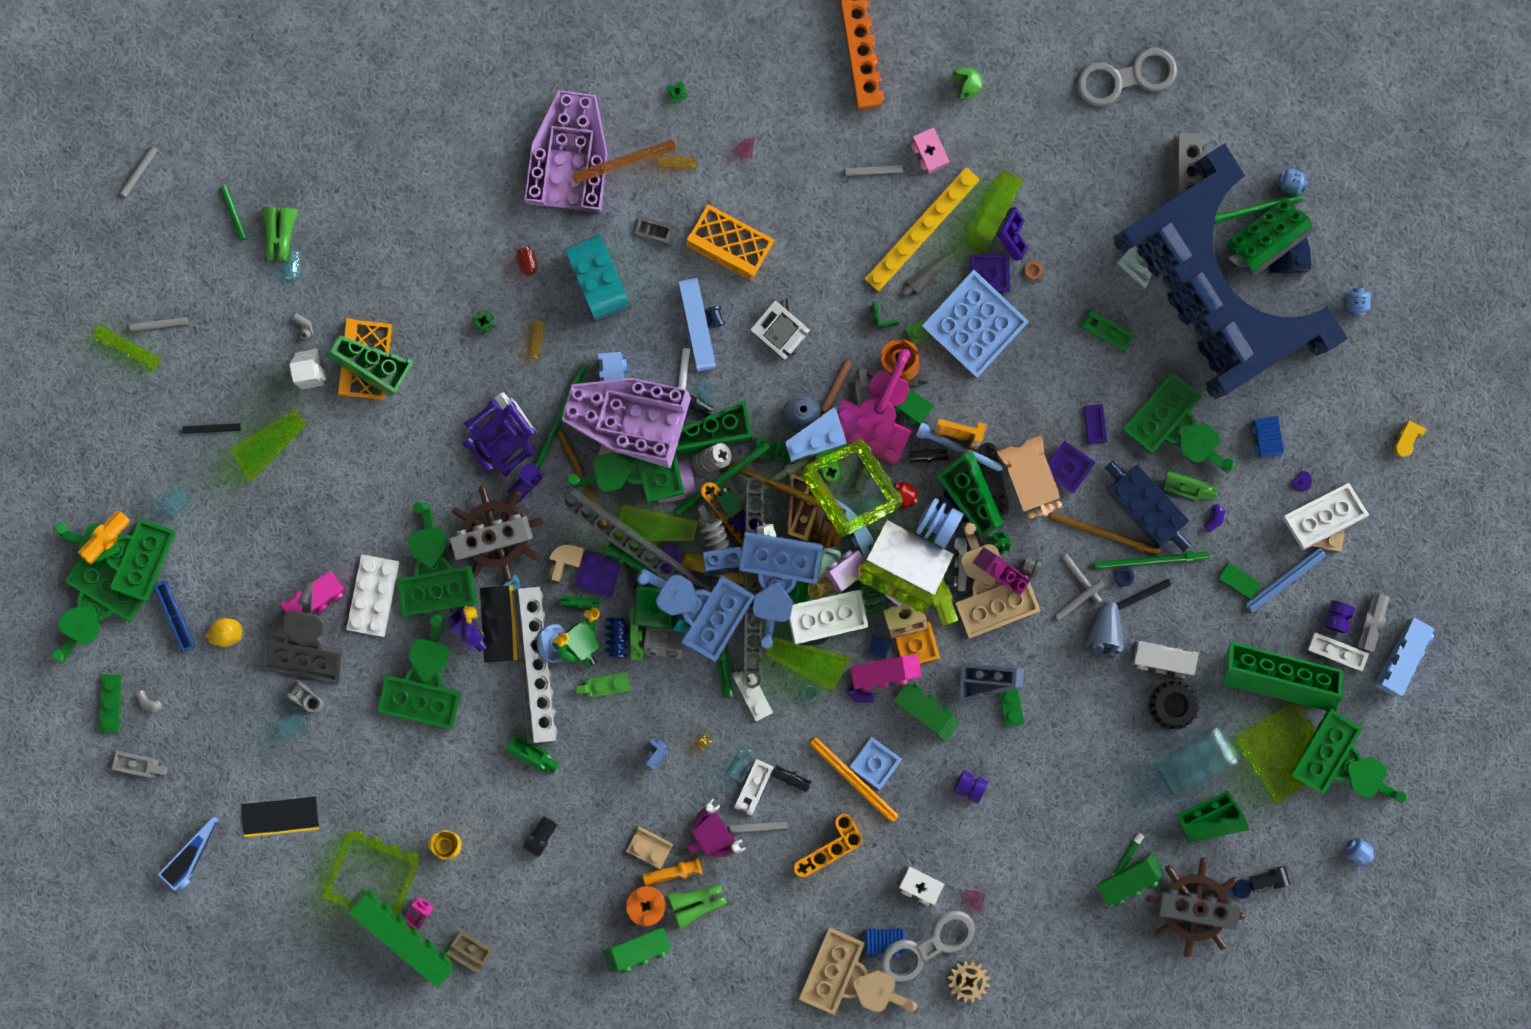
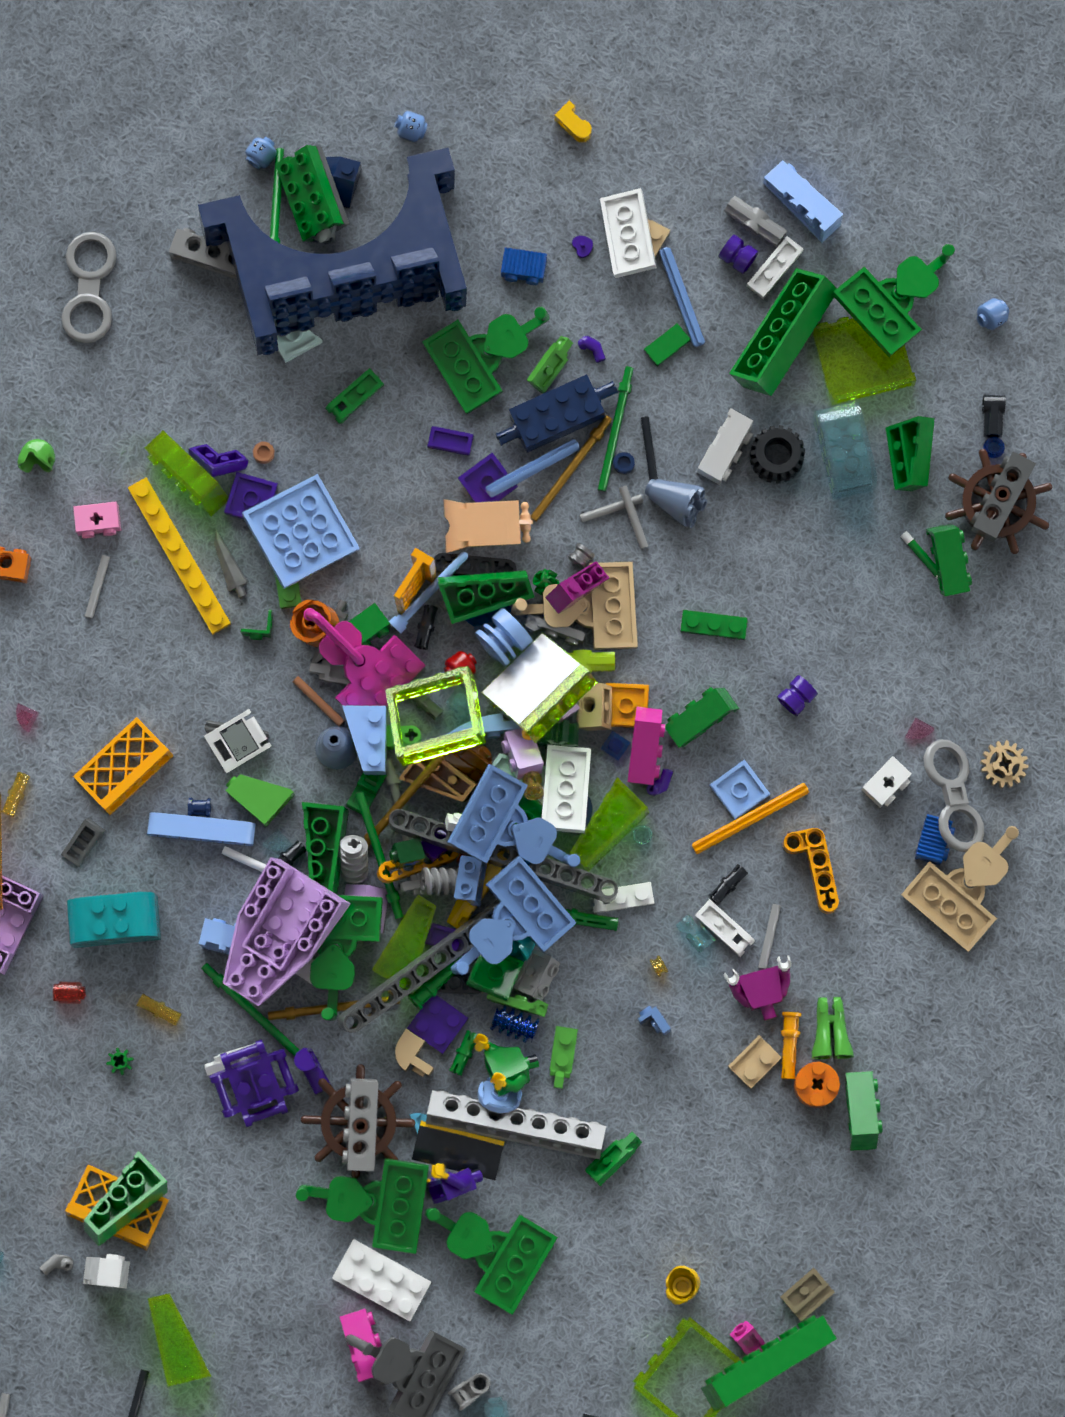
camera: 65 degrees left, 5 degrees down
(538, 839) = (708, 1181): black piece -> none
(738, 363) = (259, 797): none -> bright green slope
(987, 680) = (688, 640): sand blue wedge -> none
(1093, 500) = (532, 468): none -> medium blue axle

